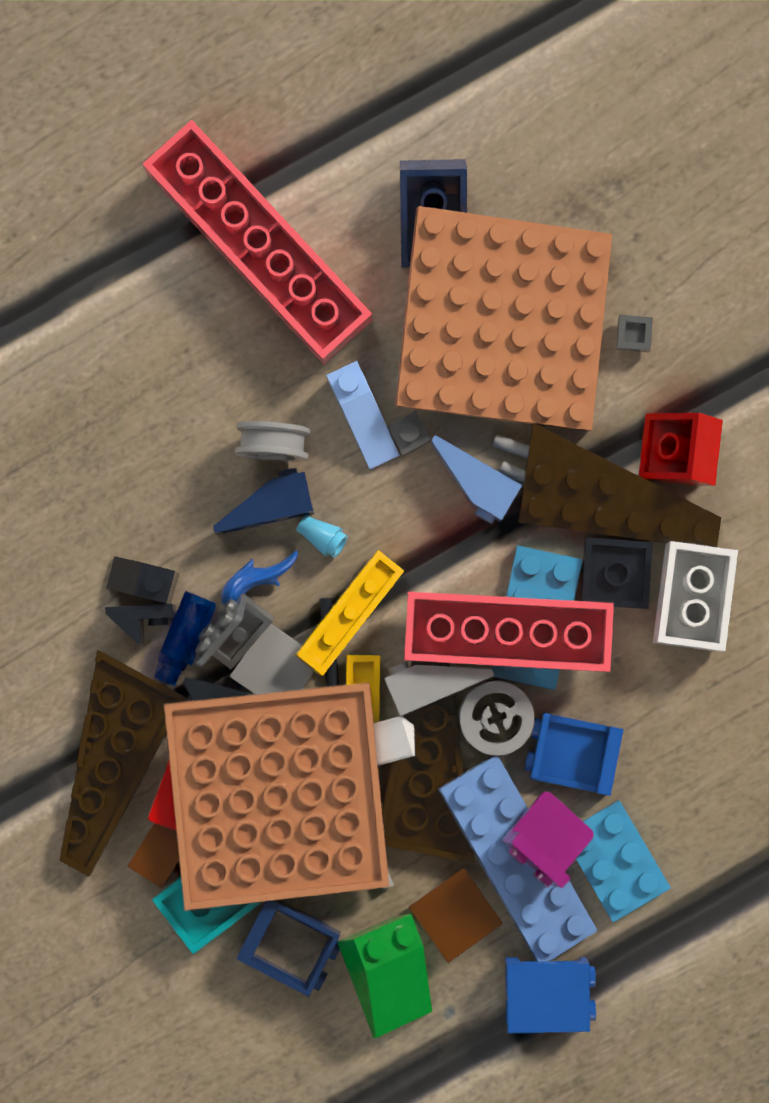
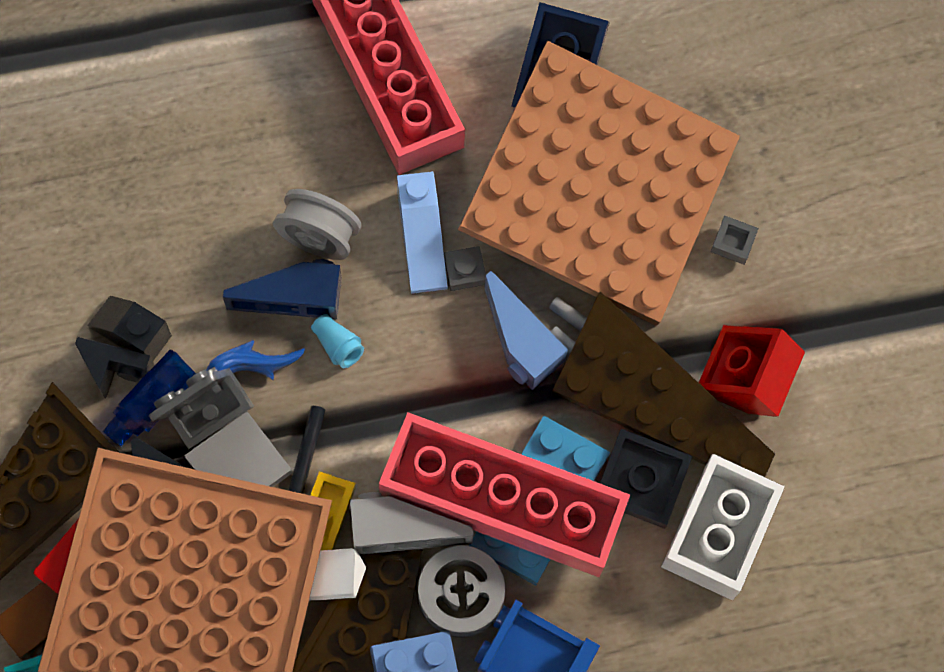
camera: 10 degrees right, 15 degrees down
(349, 613) = (336, 427): yellow plate -> none

